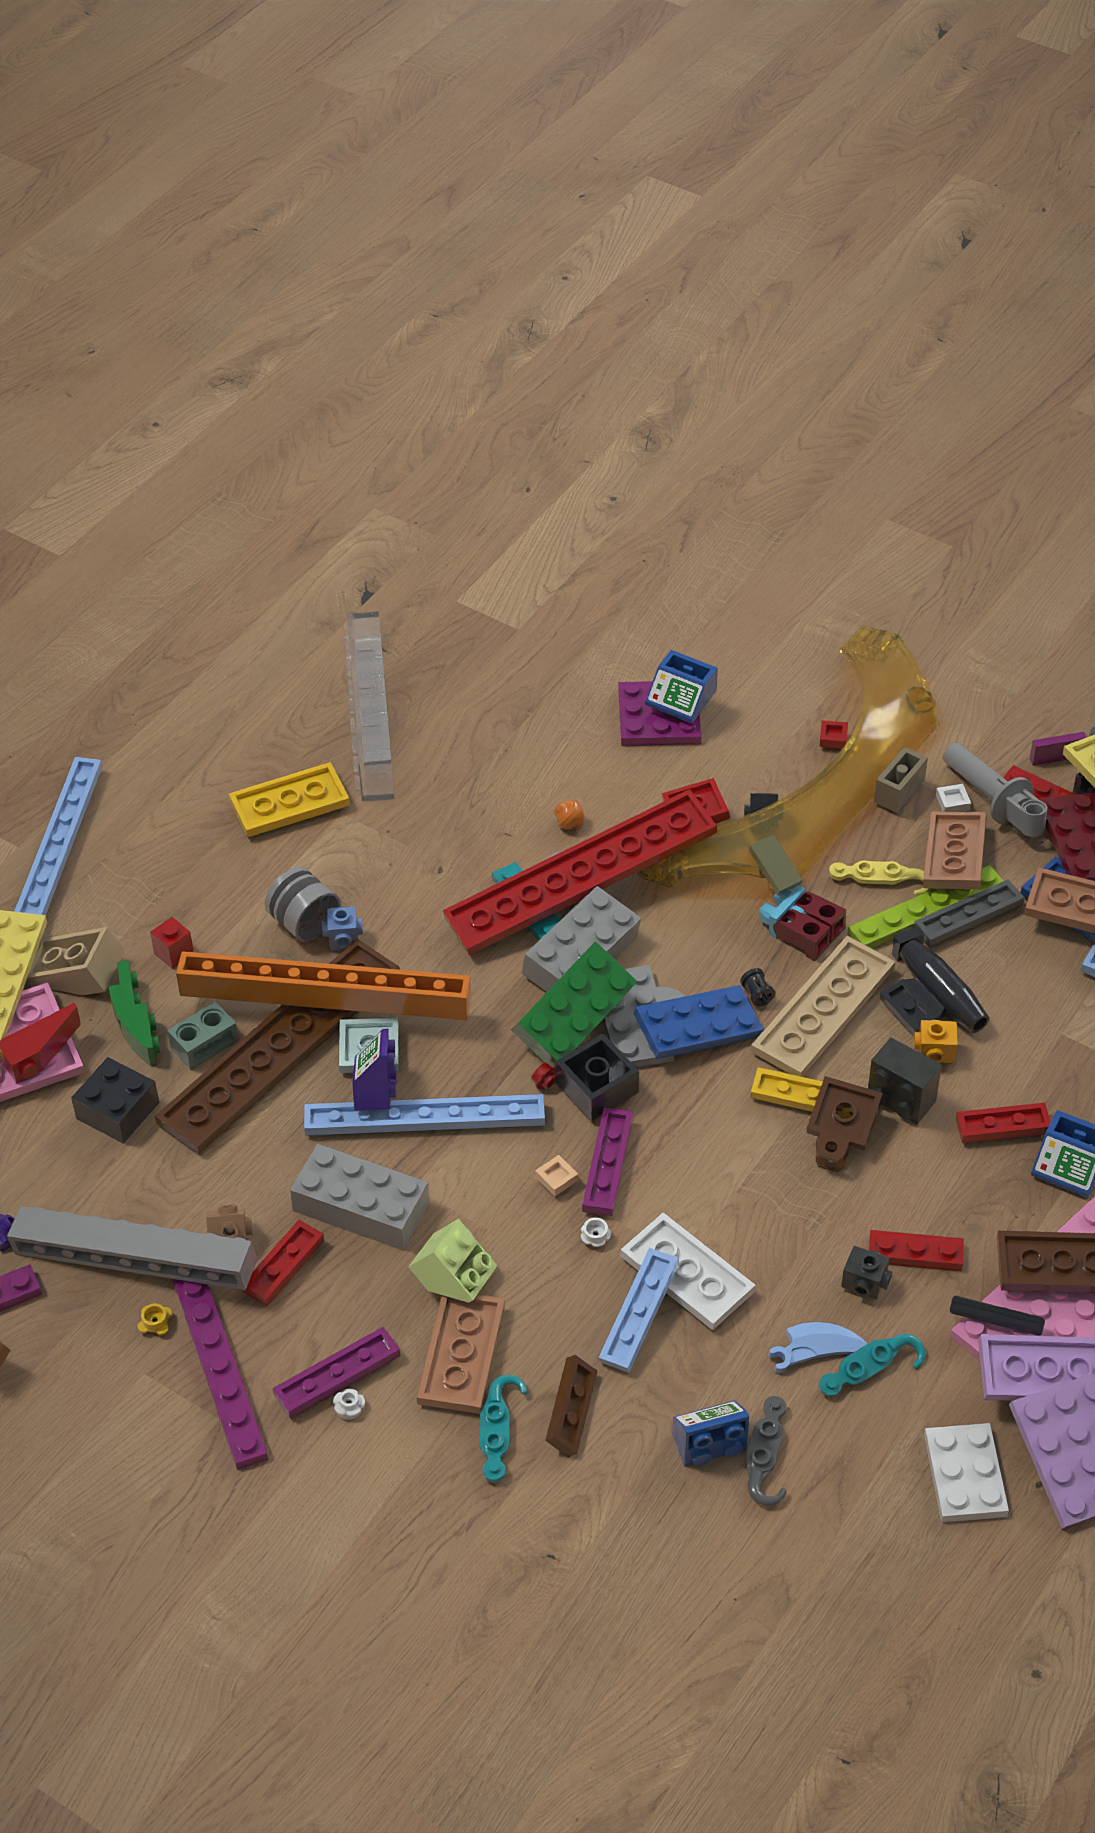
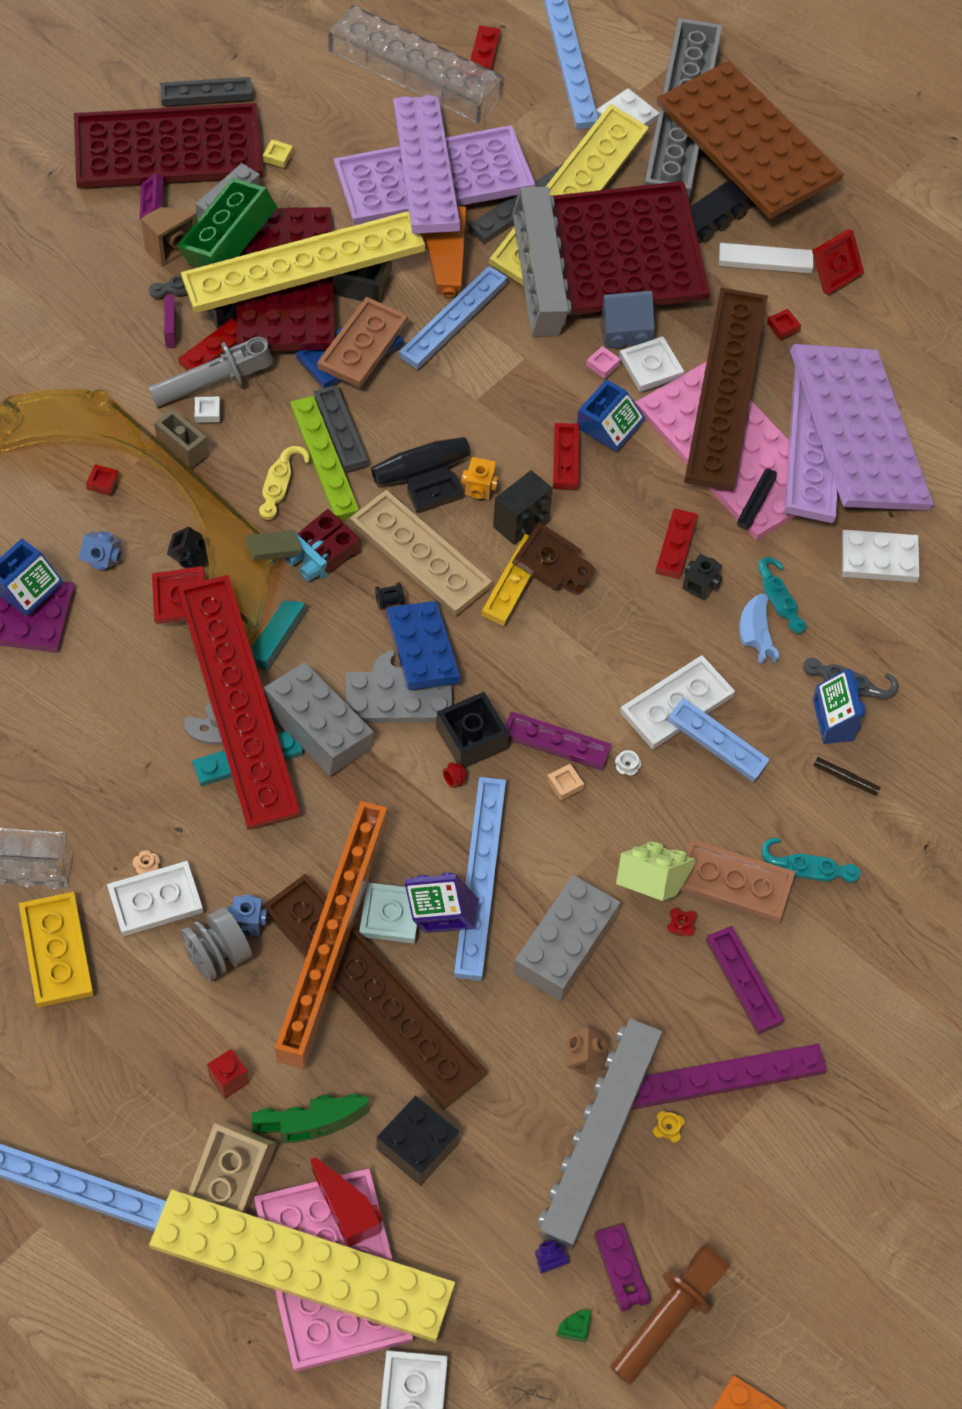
camera: 85 degrees left, 10 degrees up
(203, 1035) = (355, 1054): sand green brick -> none
(283, 1262) = (618, 1004): red plate -> none
(351, 1410) = (771, 981): white plate -> none
(354, 860) = (155, 898): none -> white plate
(393, 849) = (138, 862): none -> light nougat plate
(404, 1312) = (681, 929): none -> red plate
(569, 815) = (146, 705): orange piece -> none
(571, 1405) = (798, 806): reddish brown plate -> none
(574, 1005) = (400, 729): green brick -> none
(628, 1459) = (847, 776): none -> dark brown piece
(684, 905) = (277, 633): none -> teal slope
(742, 744) = (100, 549): none -> medium blue brick
(905, 937) = (366, 477): black plate -> none
(955, 850) = (274, 418): nougat plate -> none

